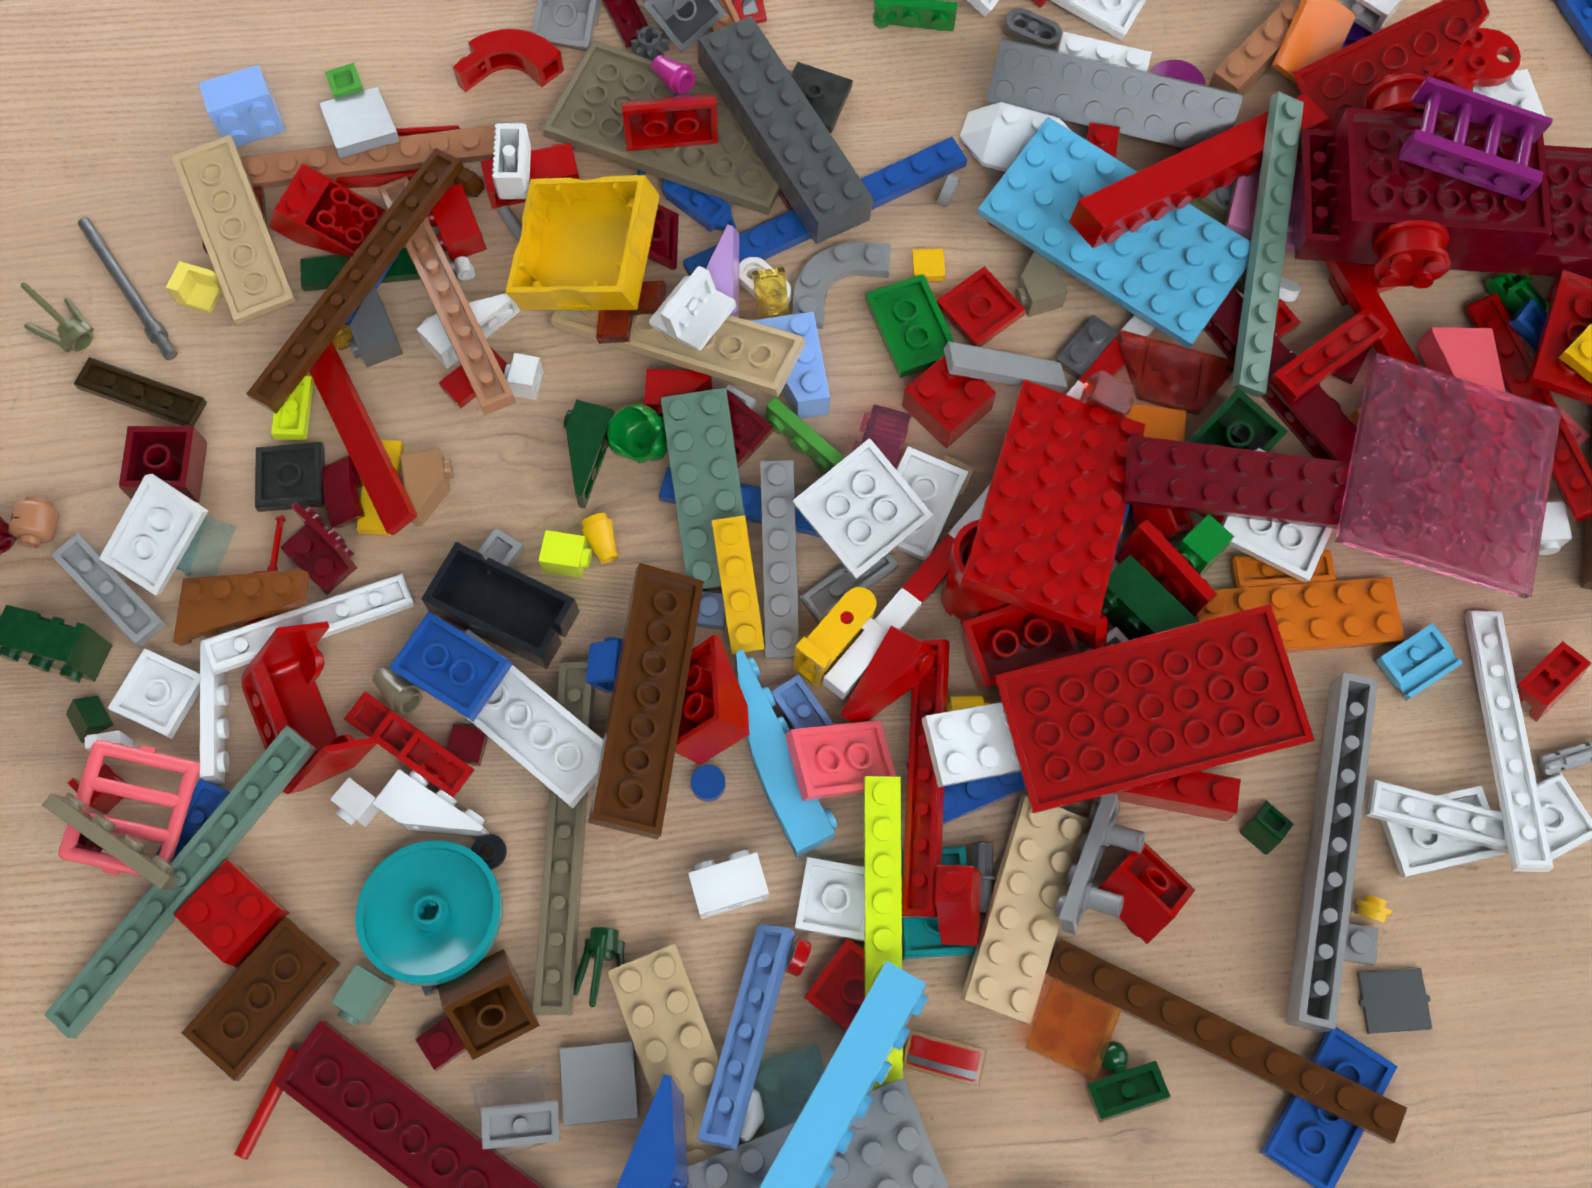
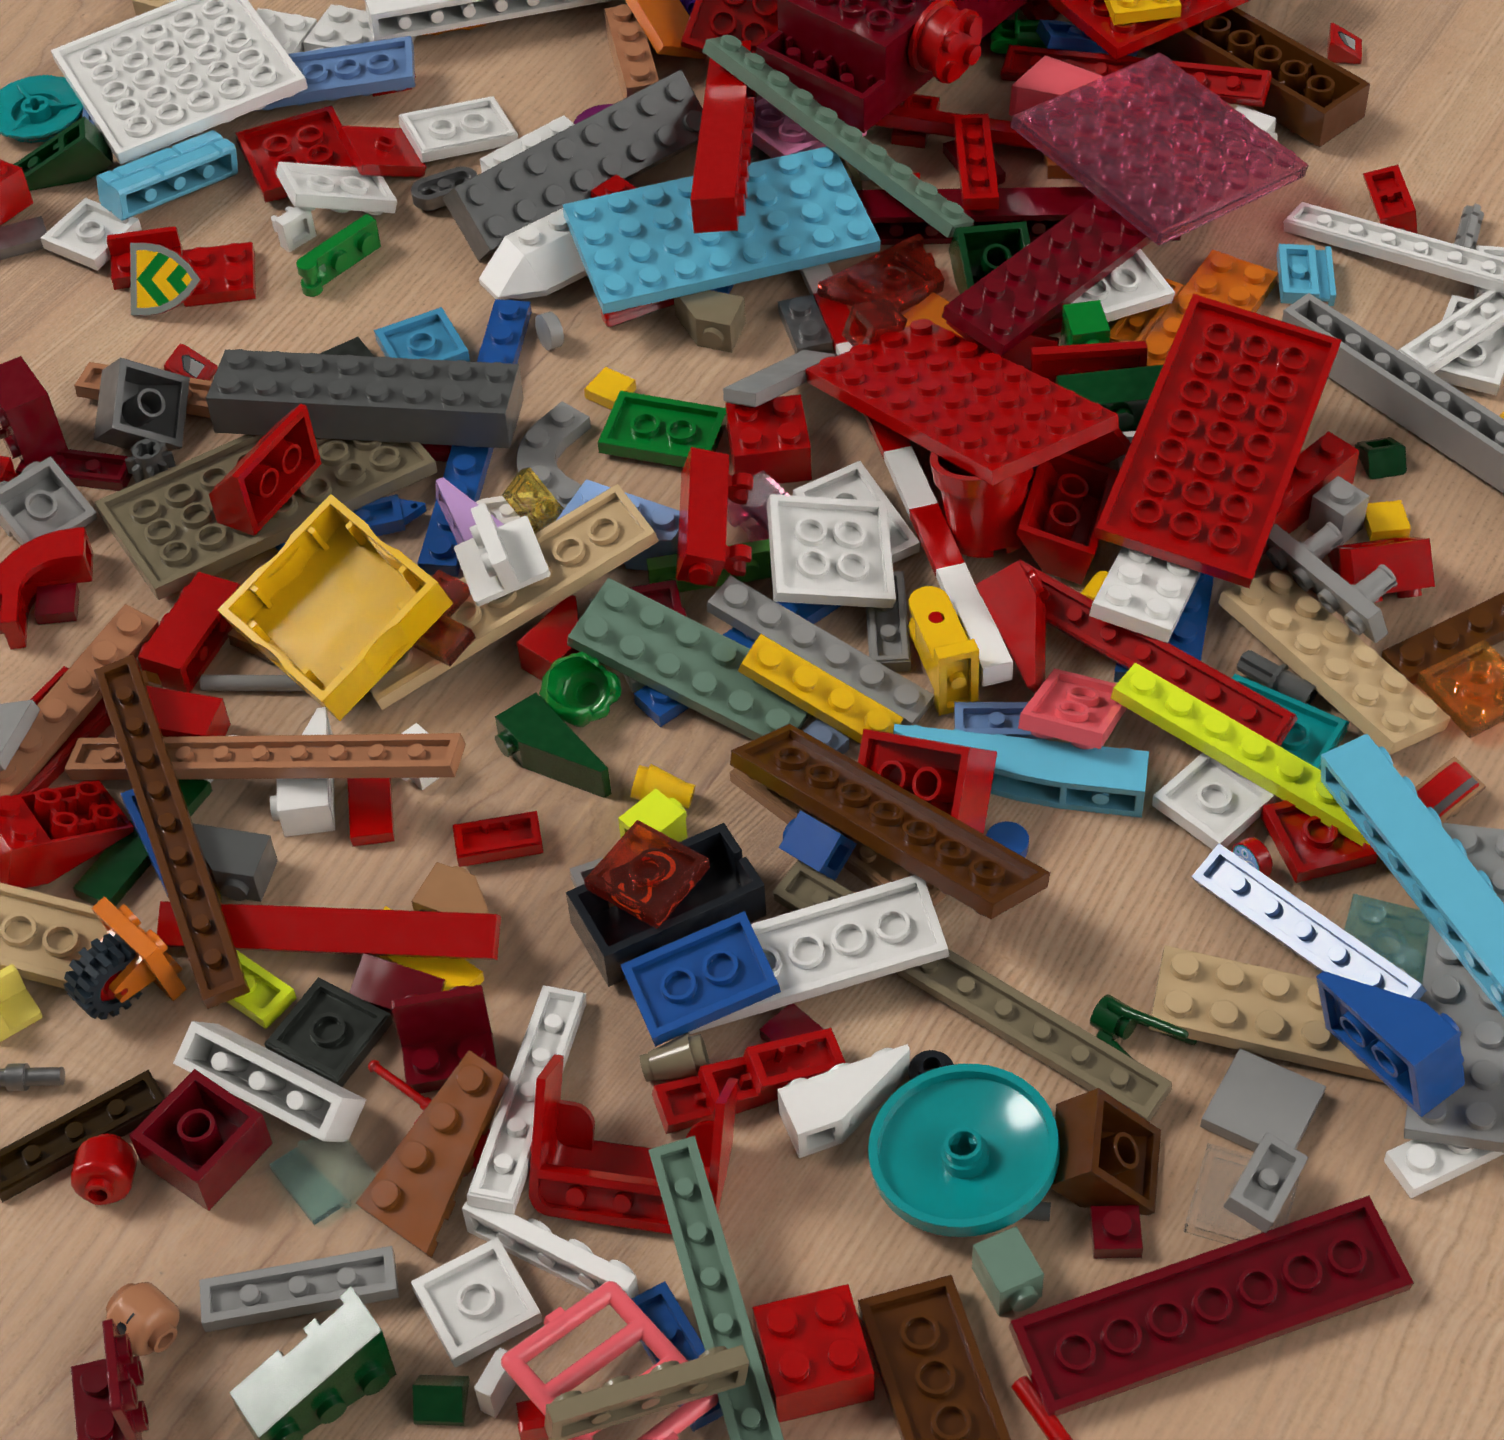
camera: 50 degrees left, 20 degrees down
(113, 424) = (104, 1169): none -> red head
(153, 534) = (285, 1186): white plate -> none
(225, 471) = (270, 1082): none -> white brick
(255, 328) = (120, 965): none -> plate
(354, 803) = (777, 1162): white plate -> none
(495, 468) = (497, 839): none -> red plate
(497, 581) = (647, 874): none -> clear red tile
(506, 83) = (57, 603): none -> dark red tile
(511, 160) = (180, 614): white brick -> none
(674, 74) = (212, 451): dark pink cone -> none
(728, 884) = (1132, 876): white brick -> none
(823, 409) = (703, 518): none -> red brick
(874, 124) = (423, 336): none -> dark azure plate
(958, 904) = (1299, 691): red slope -> none
(980, 307) = (693, 371): red plate -> none
(1174, 830) = (1341, 505): none -> light grey brick
(1200, 868) = (1386, 520): none -> yellow tile

